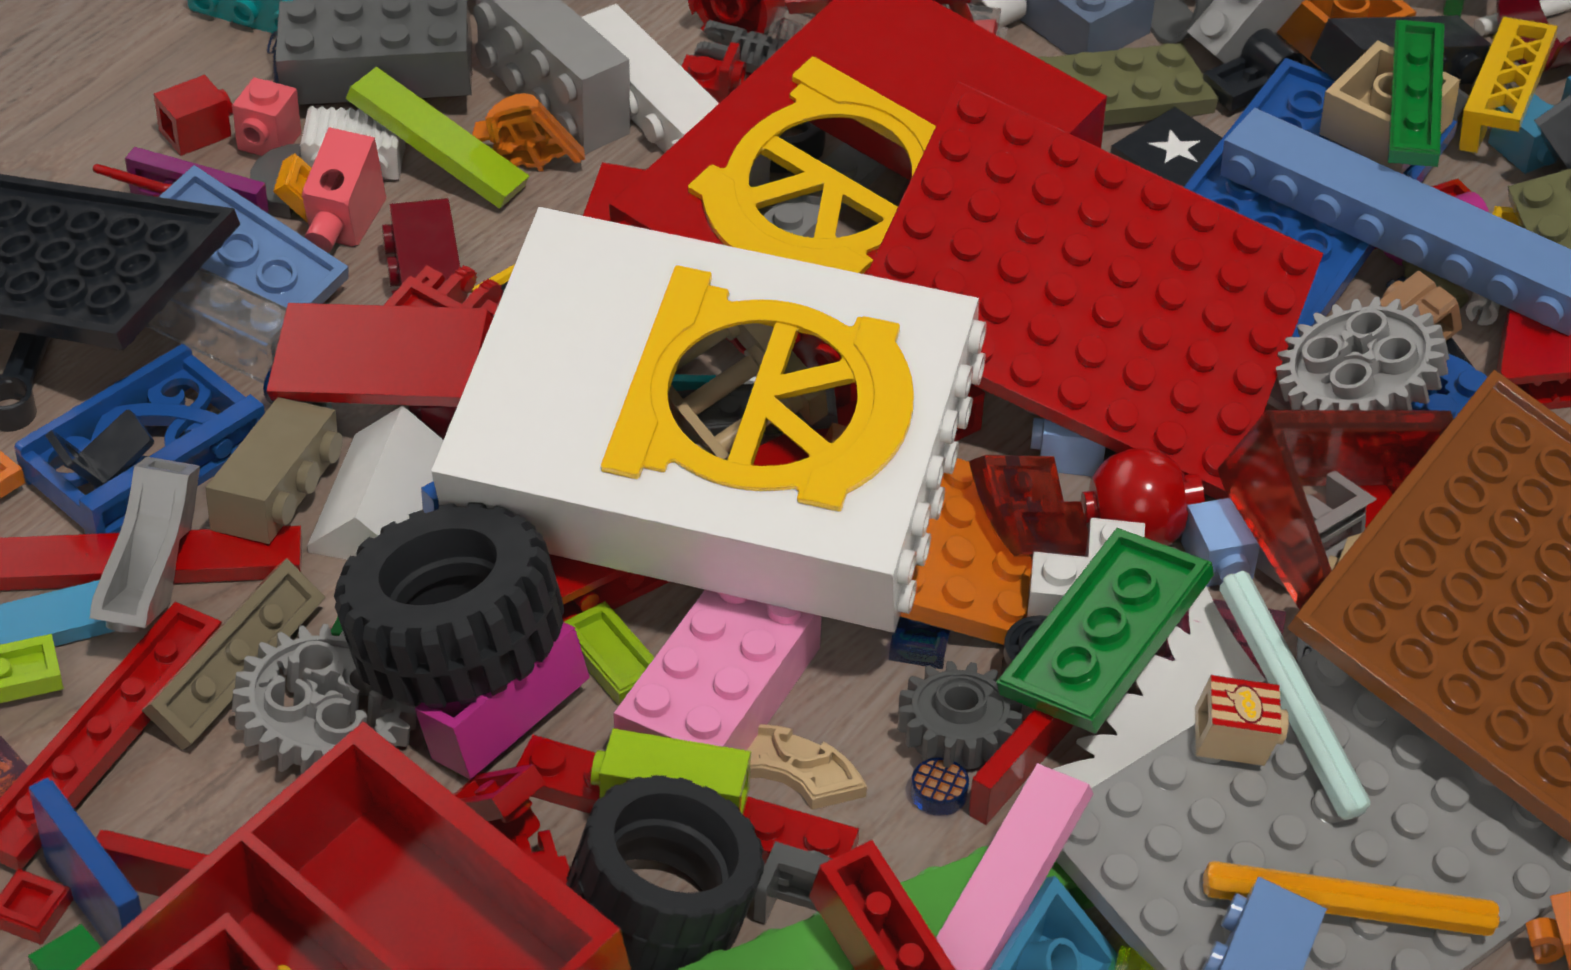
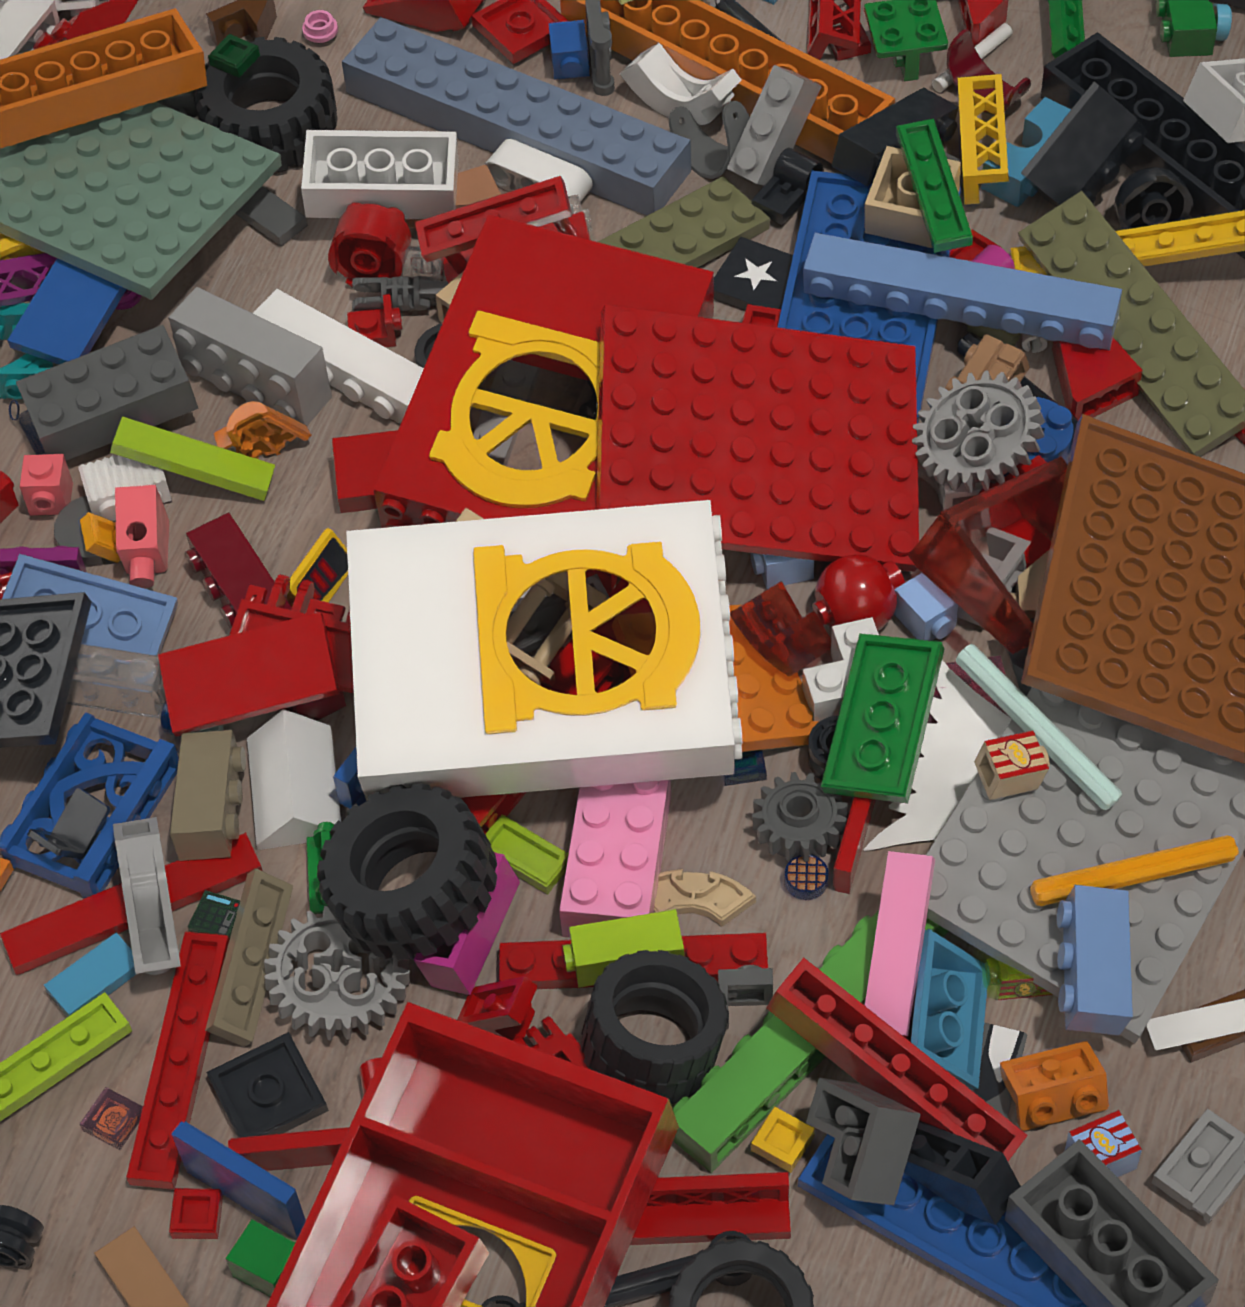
camera: 15 degrees left, 10 degrees up
(183, 798) = (267, 1089): none -> black tile
(218, 596) = (214, 914): none -> tile

